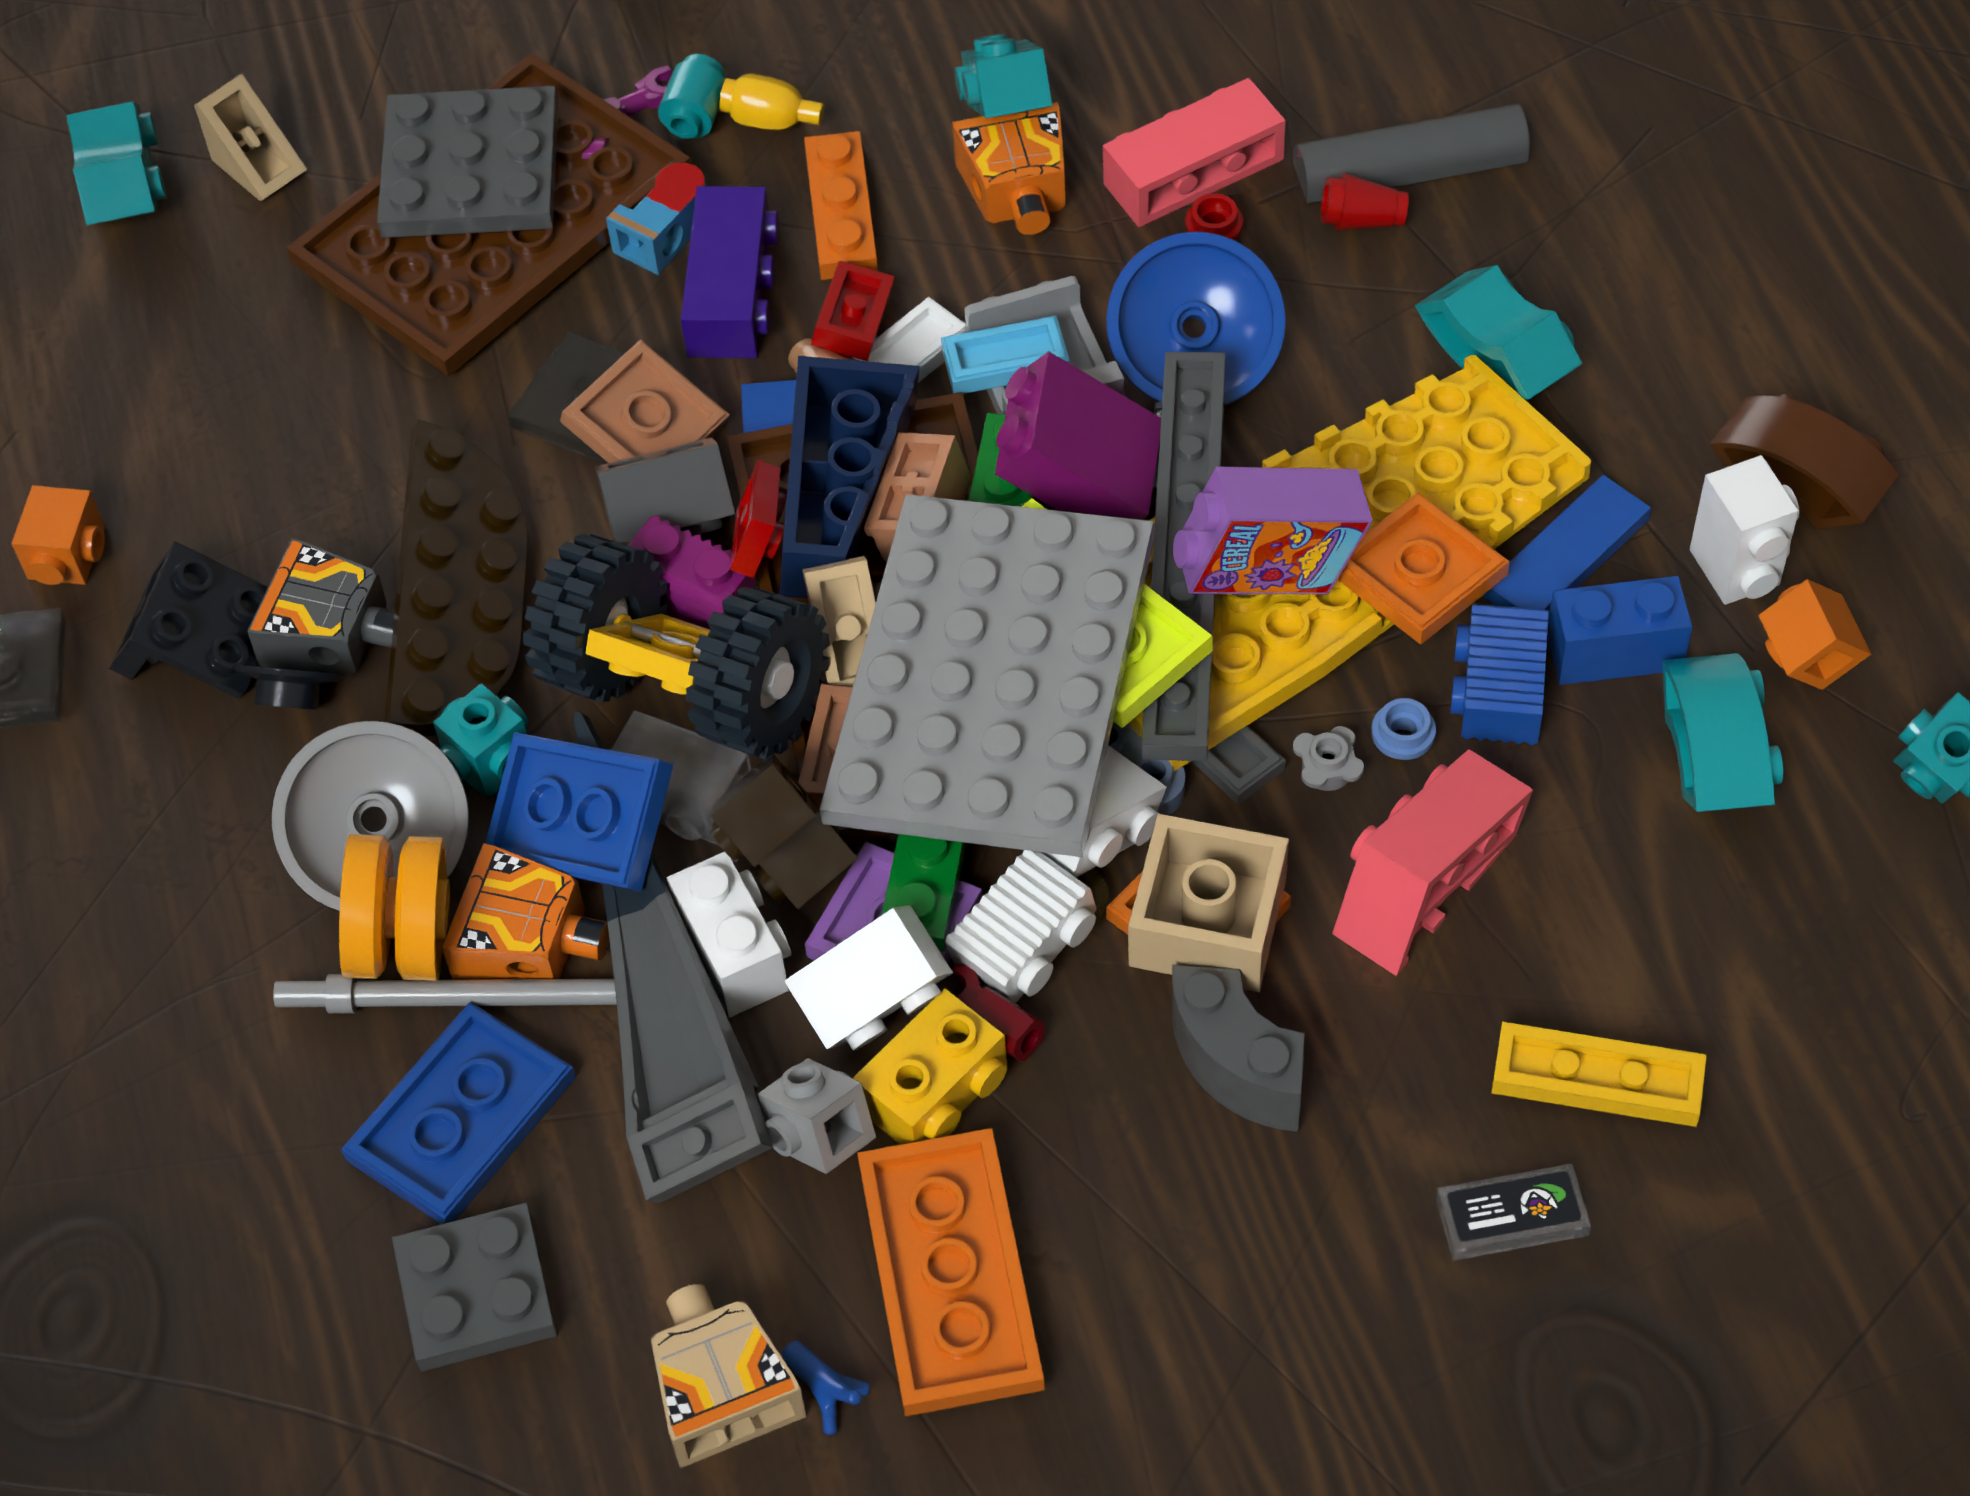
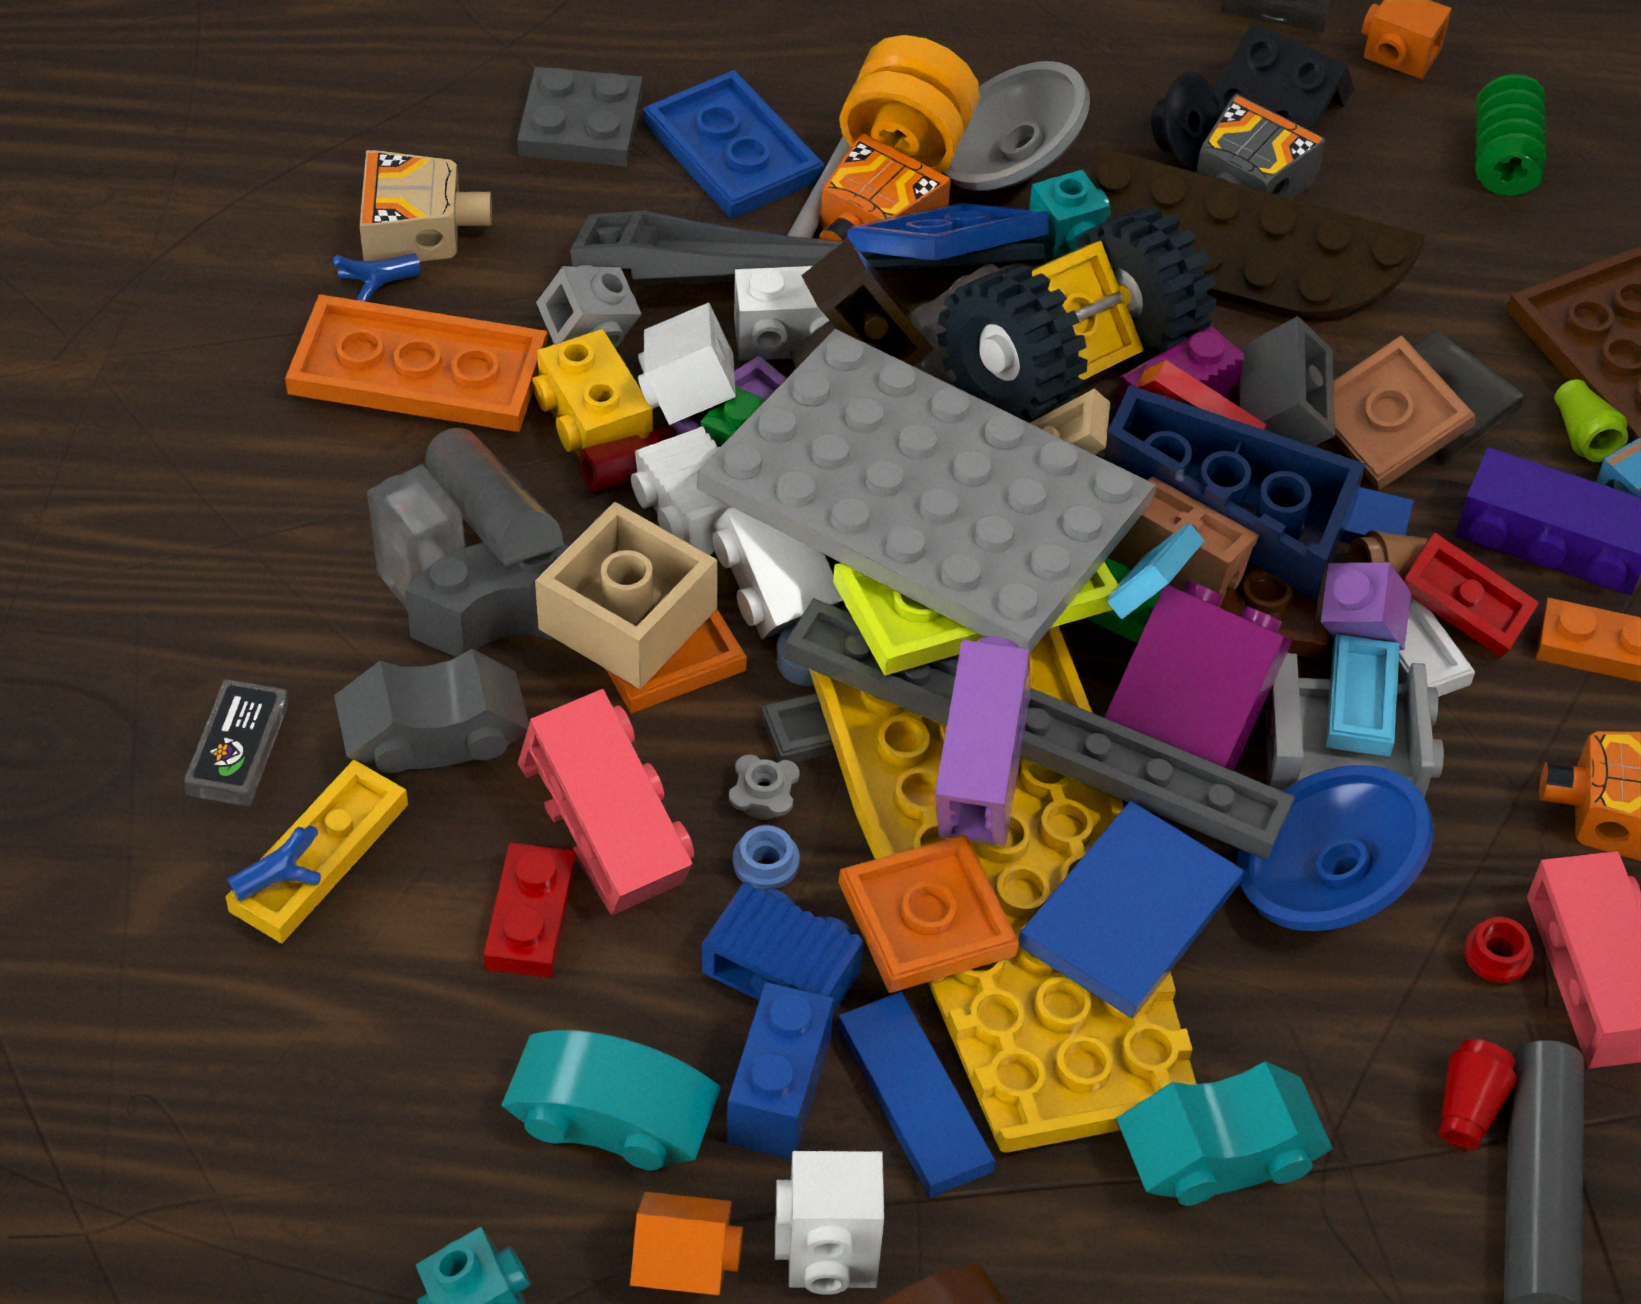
camera: 105 degrees right, 5 degrees down
(200, 411) = (1510, 135): none -> green piece
(584, 278) = (1590, 421): none -> lime cone
(928, 346) = (1366, 602): none -> medium lavender brick
(1007, 469) = (1155, 570): none -> medium azure tile
(1142, 1076) = (491, 498): none -> dark grey brick
(1225, 1120) = (412, 527): none -> clear brick
(1333, 428) = (1130, 909): none -> blue tile
(1407, 1039) = (431, 713): none -> dark grey brick
(1554, 889) = (530, 910): none -> red plate
(1652, 1071) = (277, 866): none -> blue bar

